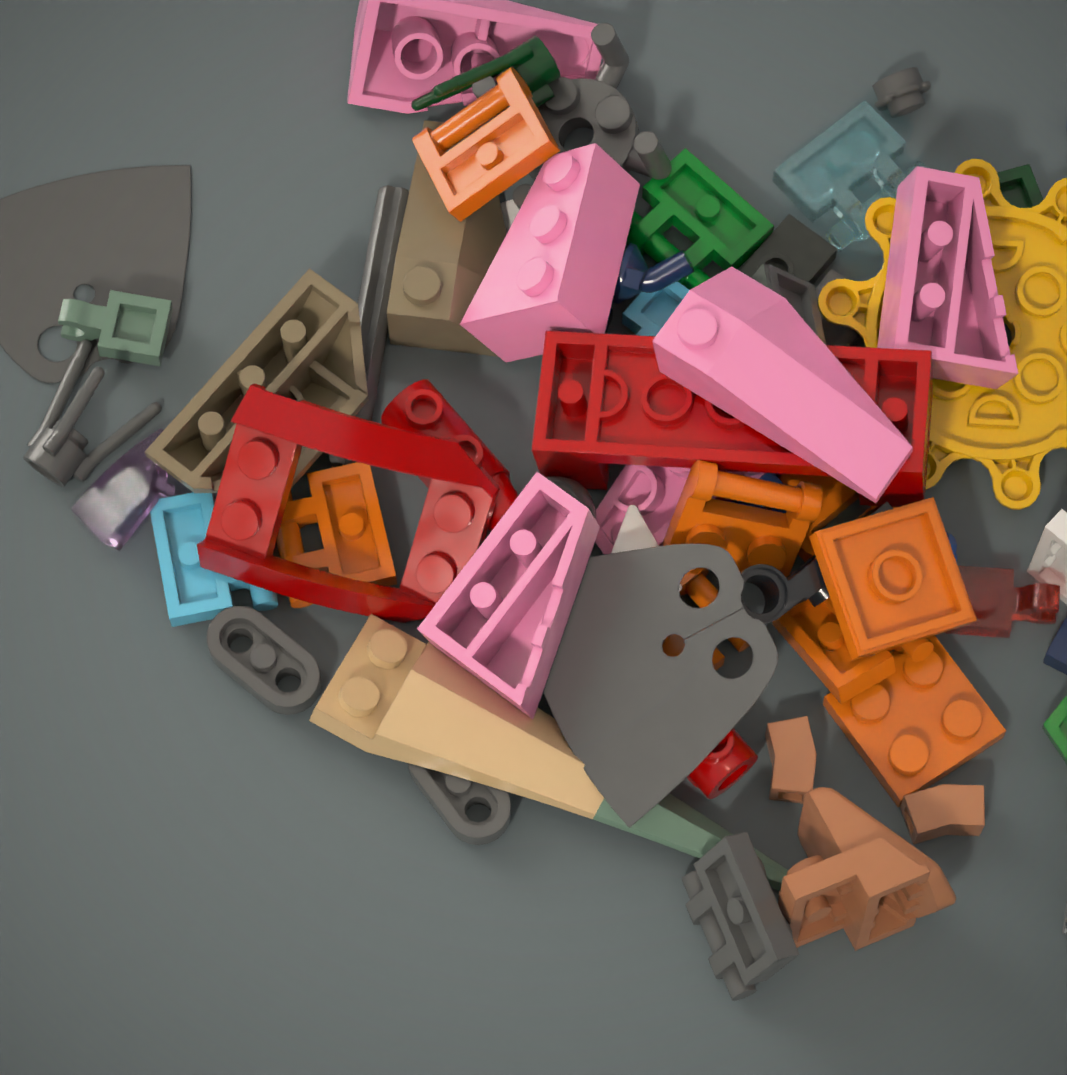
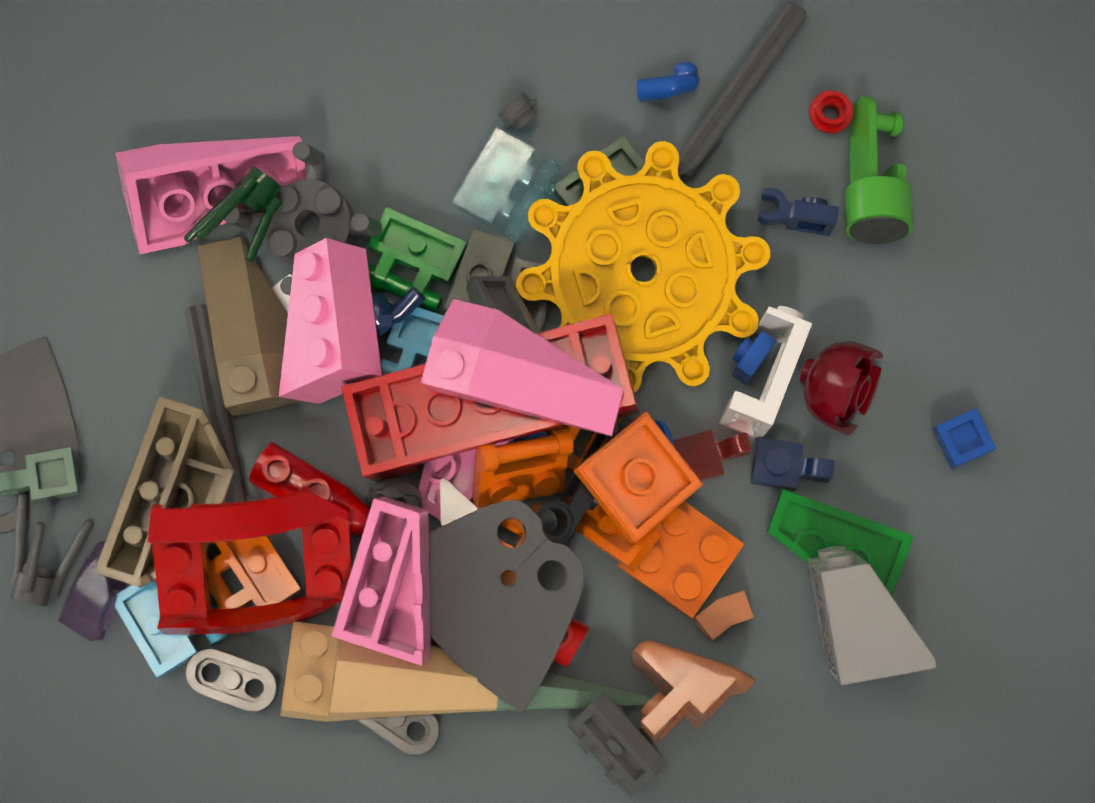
camera: 25 degrees left, 10 degrees up
(492, 155) = (258, 264): orange plate -> none
(792, 759) = (611, 616): nougat piece -> none
(944, 282) = (597, 253): bright pink wedge -> none

